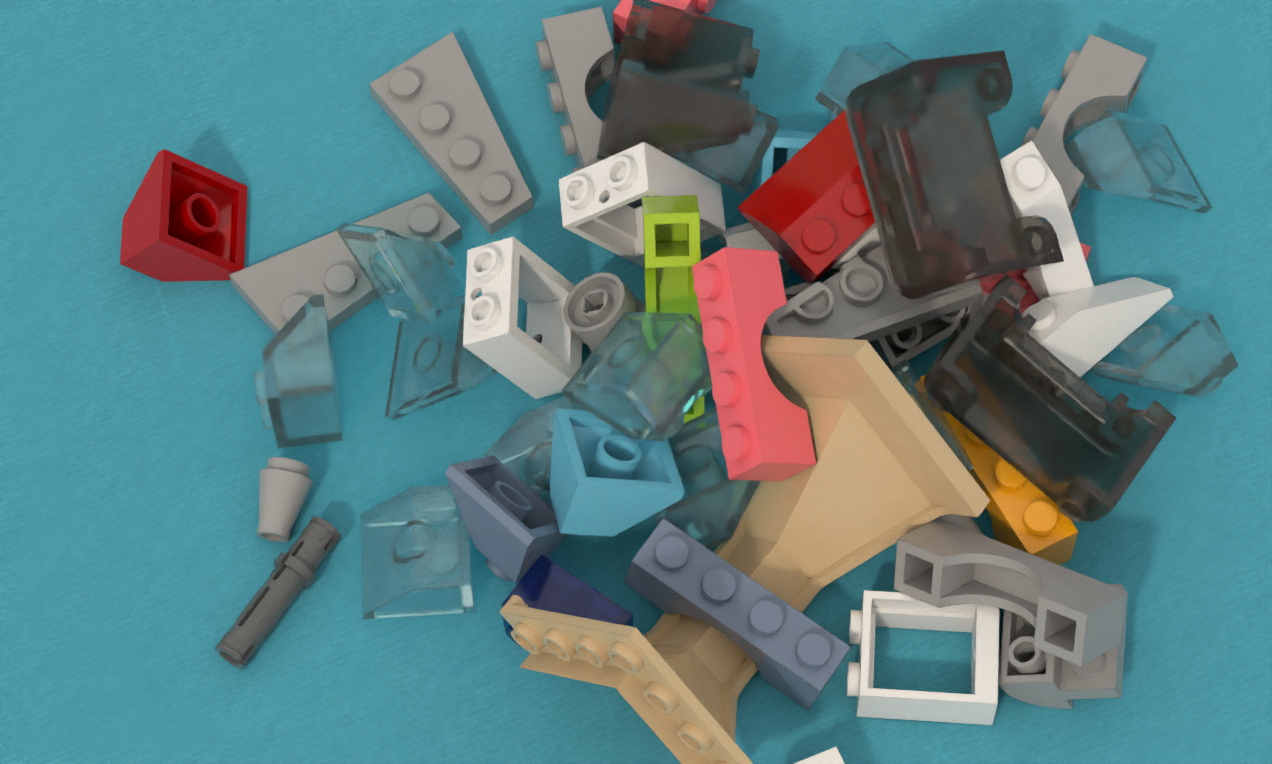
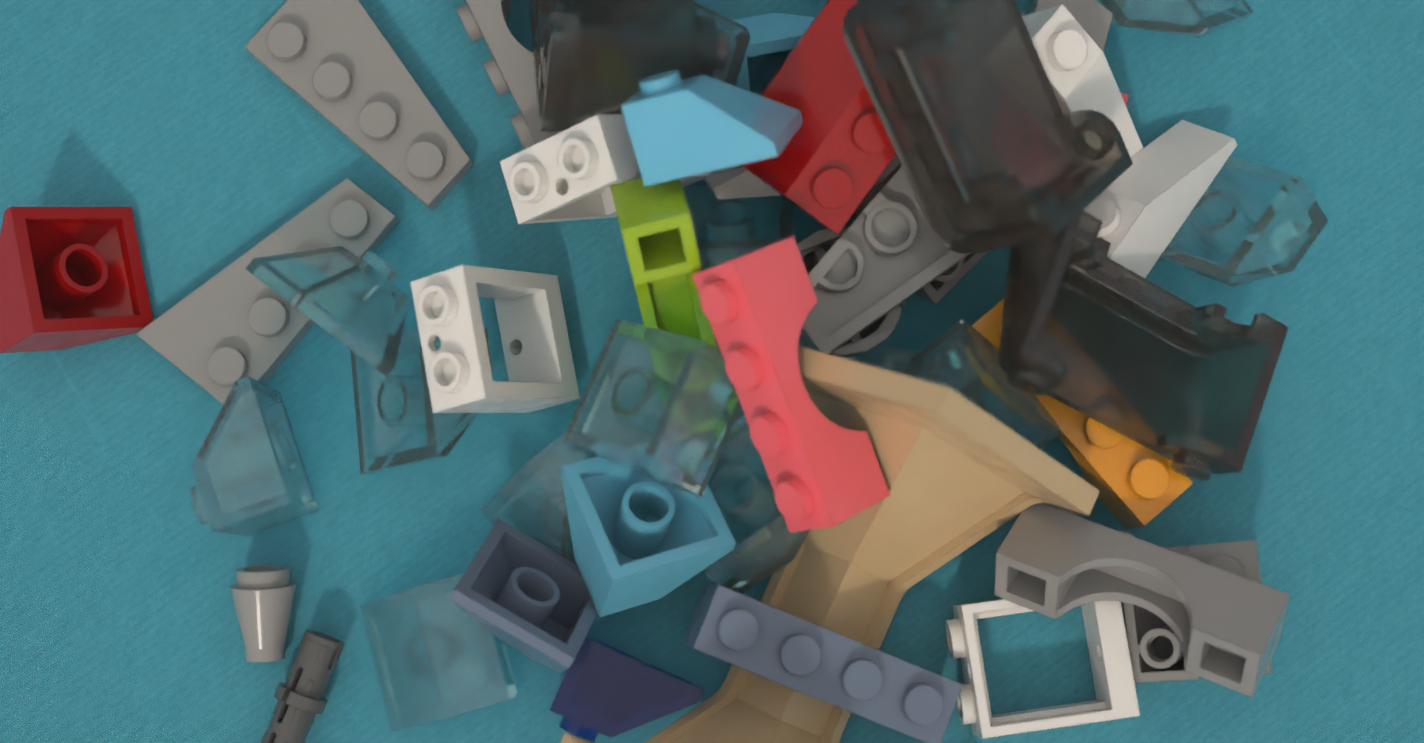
camera: 15 degrees left, 20 degrees up
(597, 306) = (583, 308): light grey wheel -> none
(721, 161) = (702, 126): none -> medium azure slope

